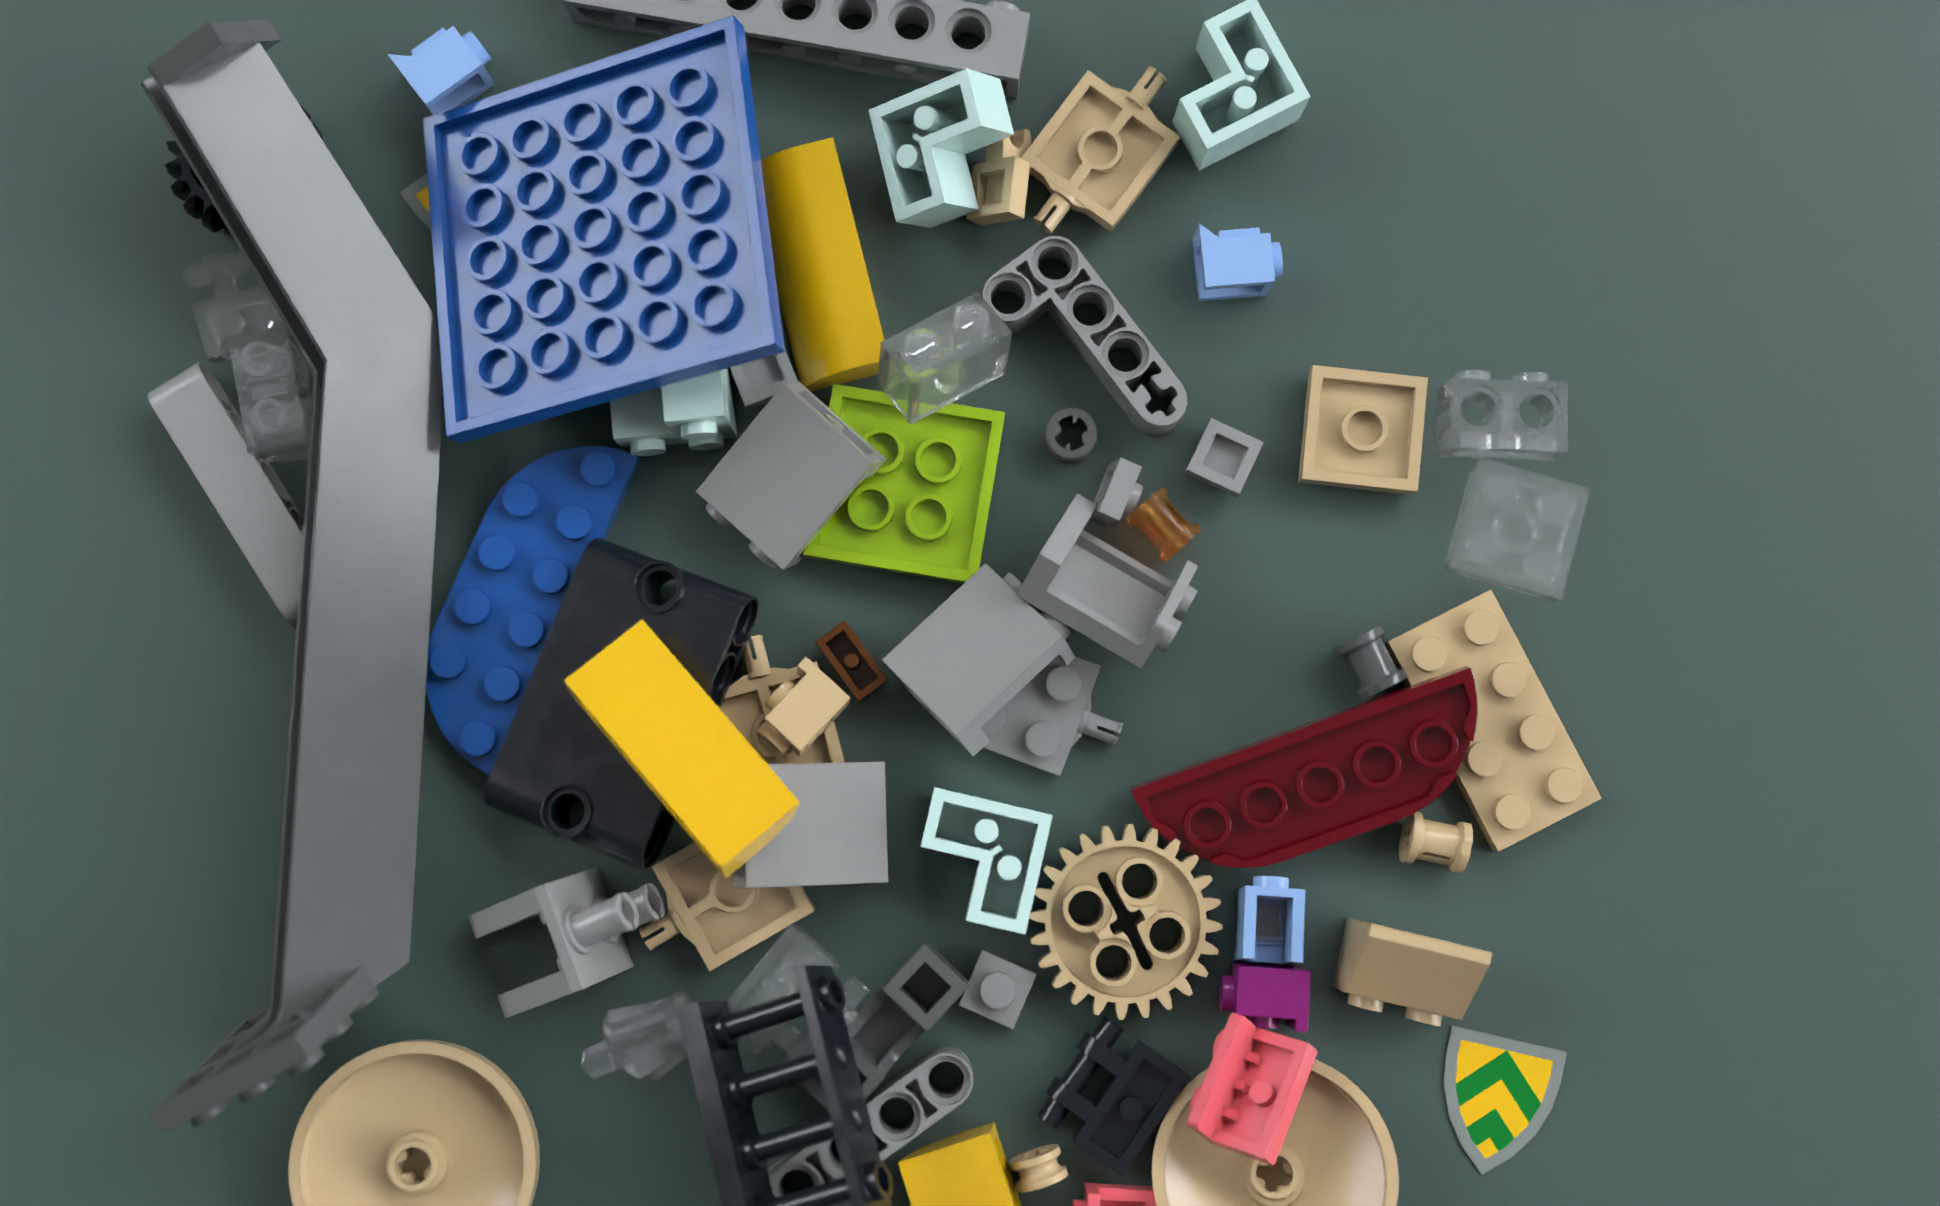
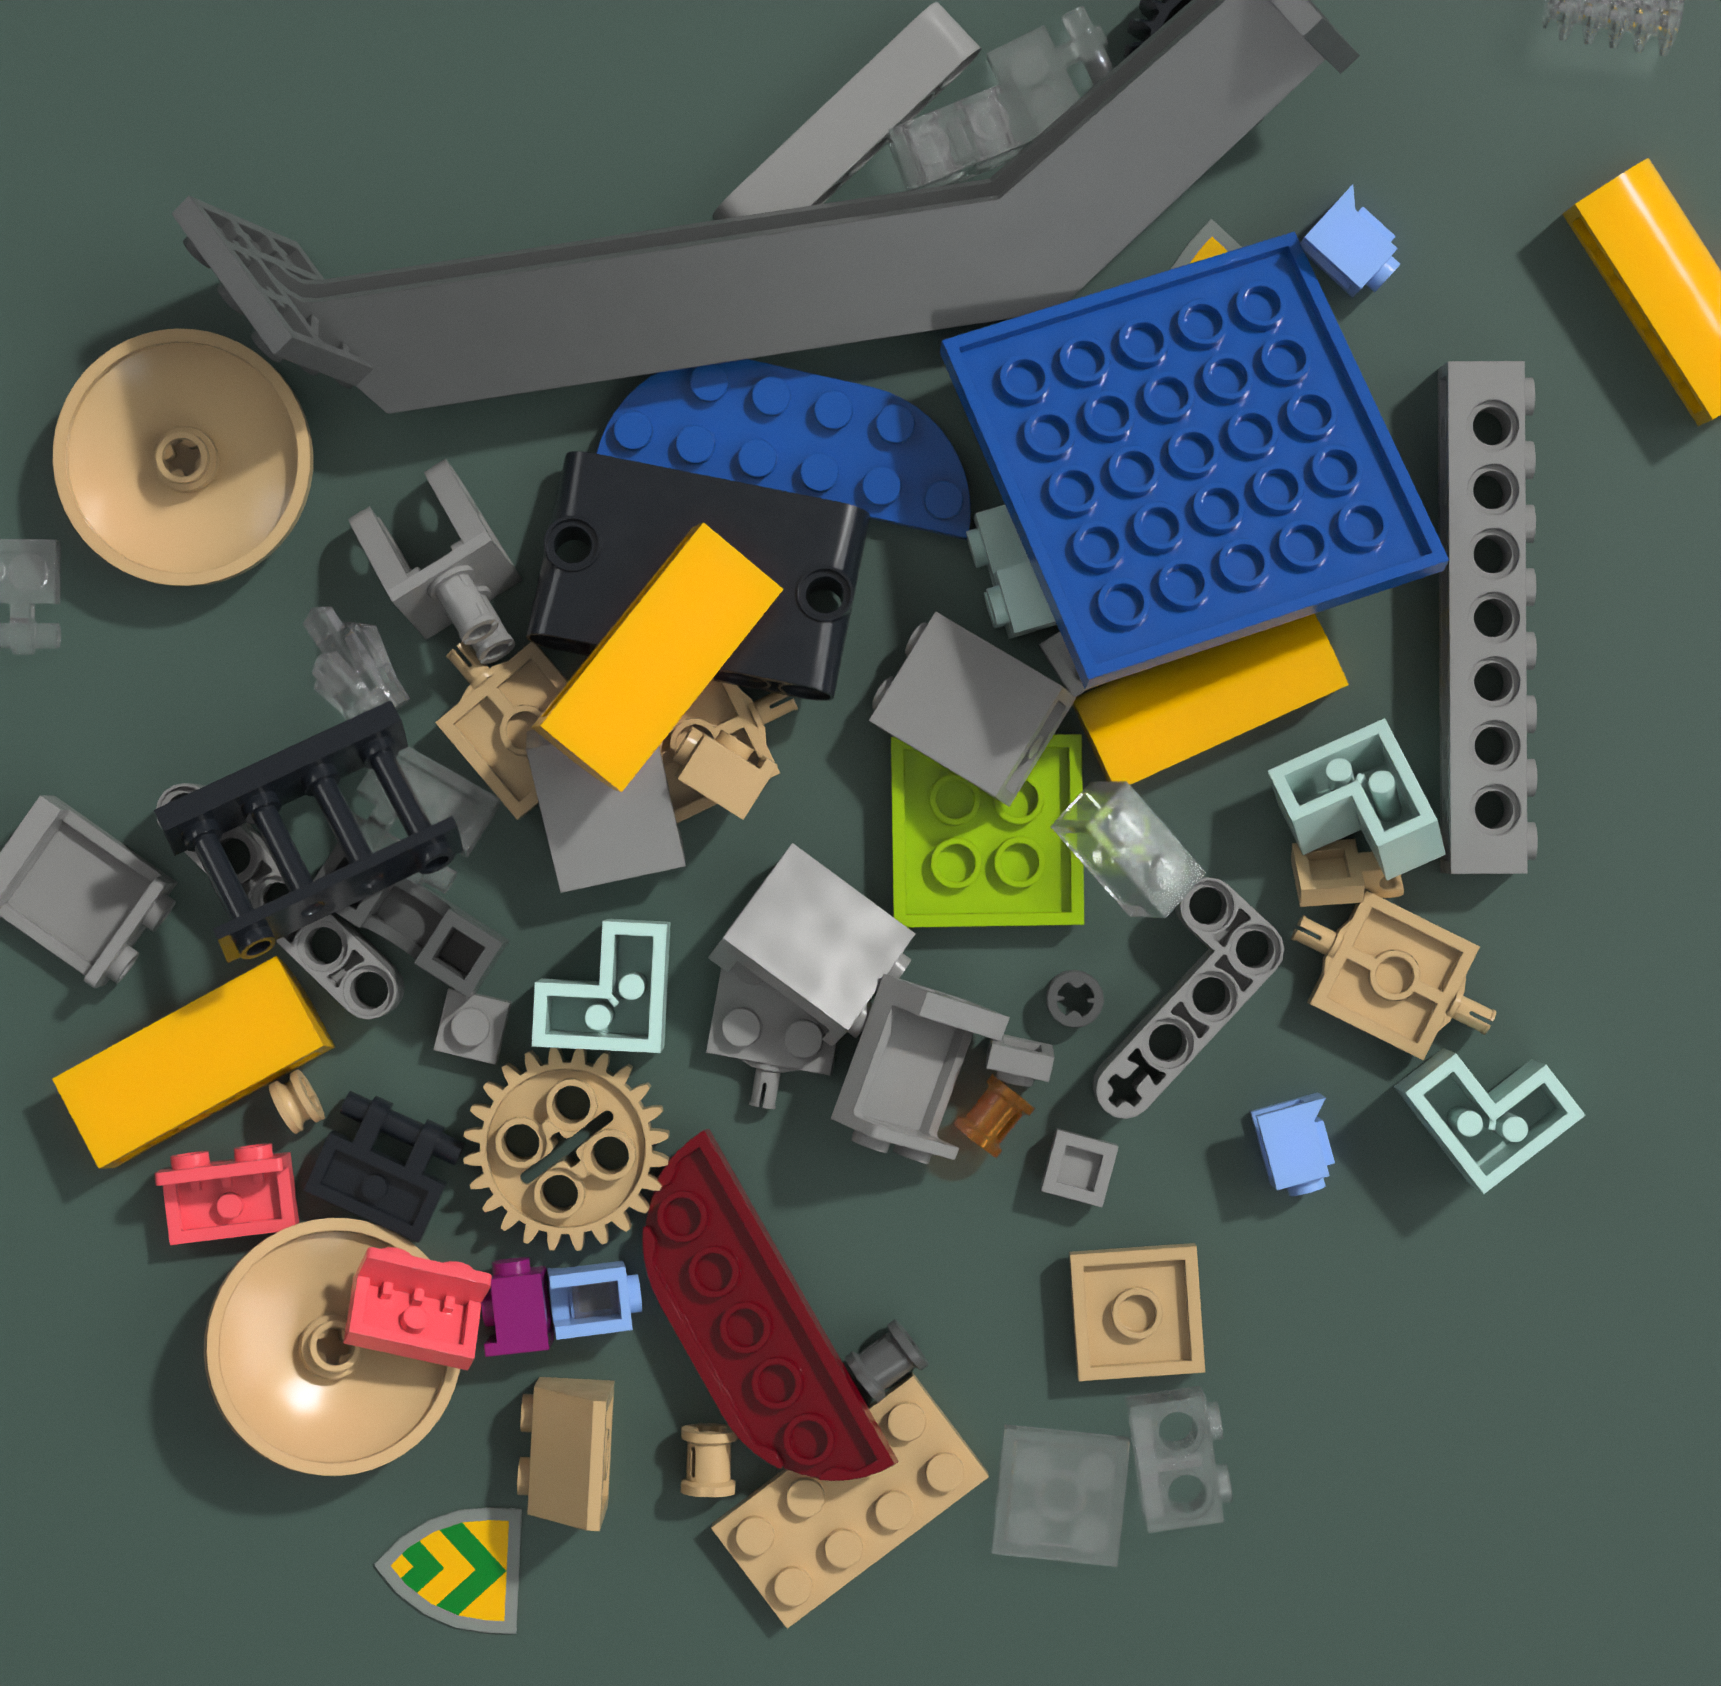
camera: 80 degrees right, 5 degrees up
(852, 661) = (786, 810): reddish brown piece -> none

